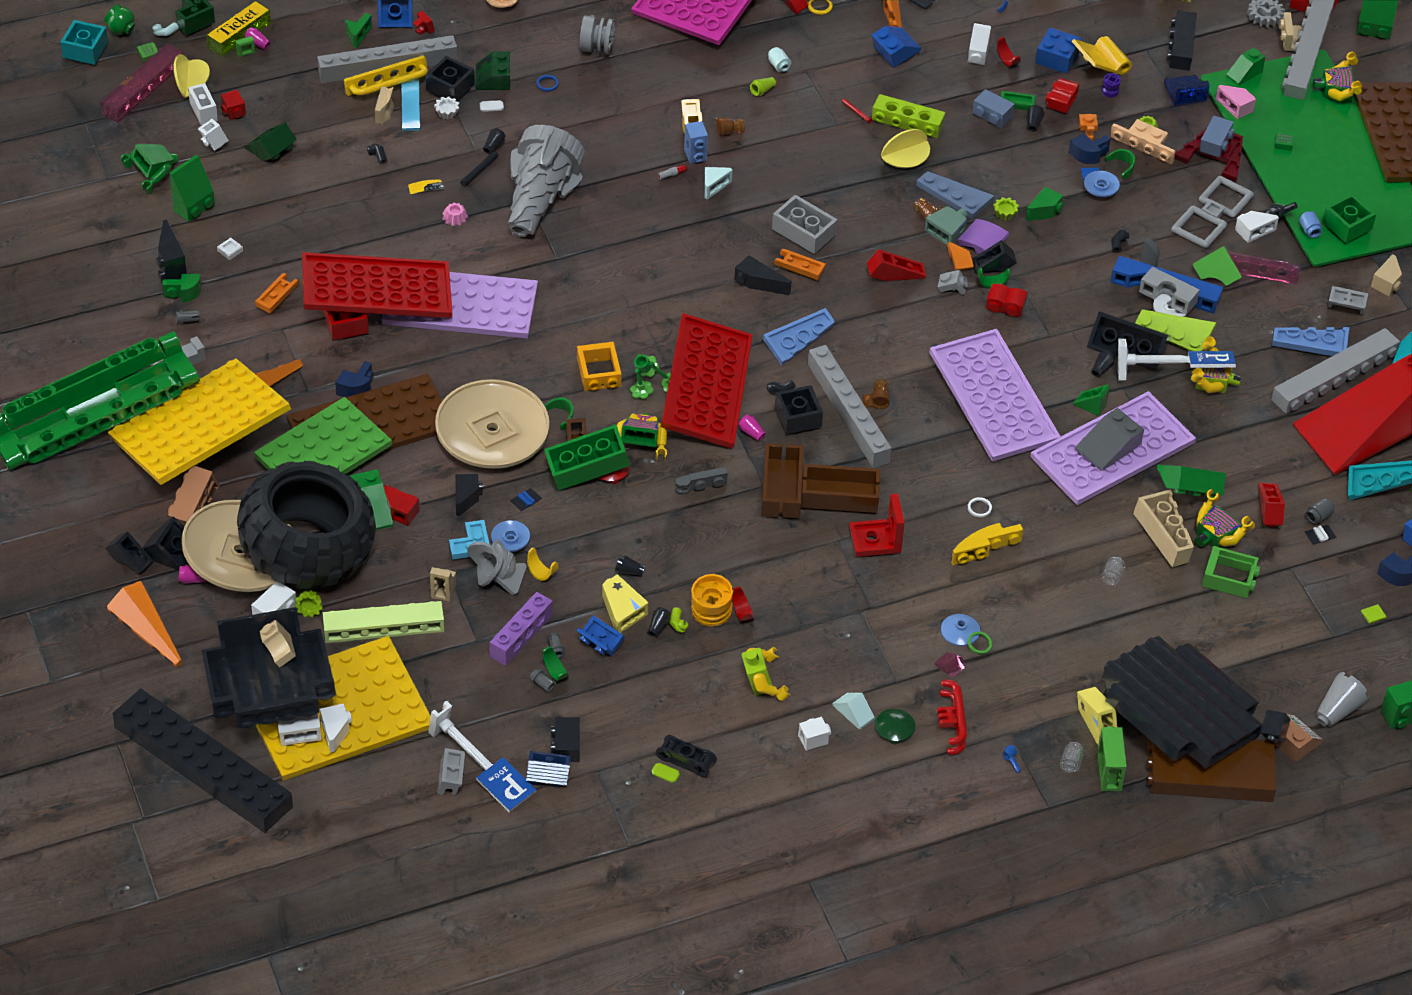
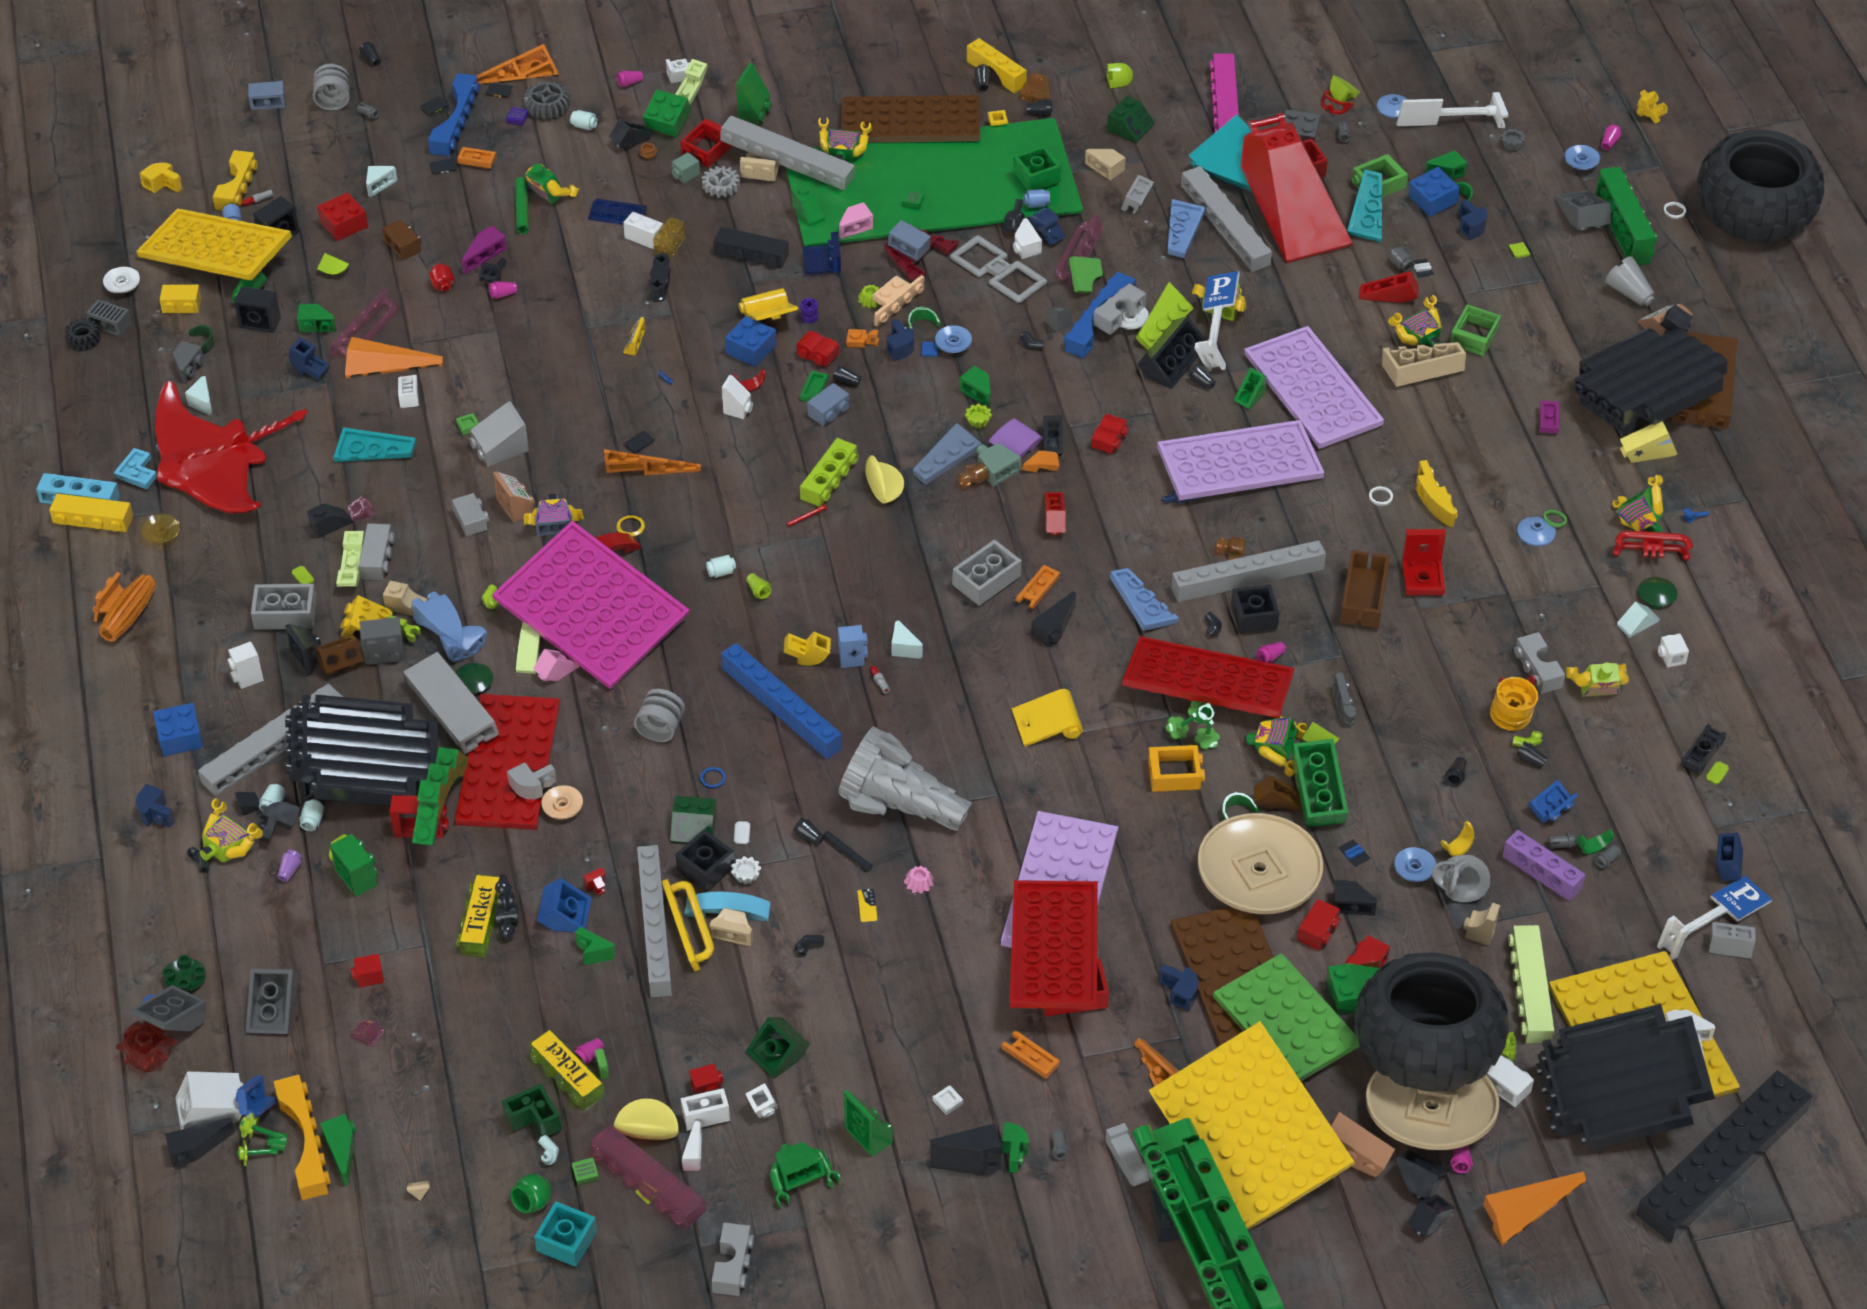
camera: 80 degrees left, 0 degrees up
(81, 138) = (729, 1276): none -> light grey arch
(165, 105) = (692, 1154): none -> white slope
(278, 643) = (1585, 1066): tan arch -> none
(433, 470) = (1319, 924): none -> red brick
(475, 532) = (1419, 895): medium azure plate -> none
(567, 737) = (1686, 841): black brick -> none
(623, 603) = (1509, 780): light yellow slope -> none
(631, 109) = (781, 701): none -> blue brick
(645, 282) = (1048, 717): none -> yellow door
(656, 466) = (1318, 733): none -> lime brick
(727, 126) = (818, 622): clear orange piece -> none
(782, 481) = (1352, 632): reddish brown piece -> none
(789, 619) = (1531, 651): none -> light grey arch
(895, 44) = (719, 467): blue slope -> none
(950, 664) = (1579, 543): clear pink slope -> none
(953, 280) = (1078, 471): light grey bracket -> none
(987, 281) = (1074, 439): green helmet -> none
(992, 702) = (1642, 509): none -> torso
(1072, 757) = (1696, 471): clear brick -> none
(1110, 439) = (1315, 380): dark grey slope -> none
(1111, 759) = (1705, 428): bright green window -> none
(1113, 571) = (1471, 409): clear brick -> none
(1121, 635) = (1549, 417): none -> magenta plate
(1192, 480) = (1369, 332): green slope -> none
(1278, 233) = (1046, 222): none -> dark blue brick

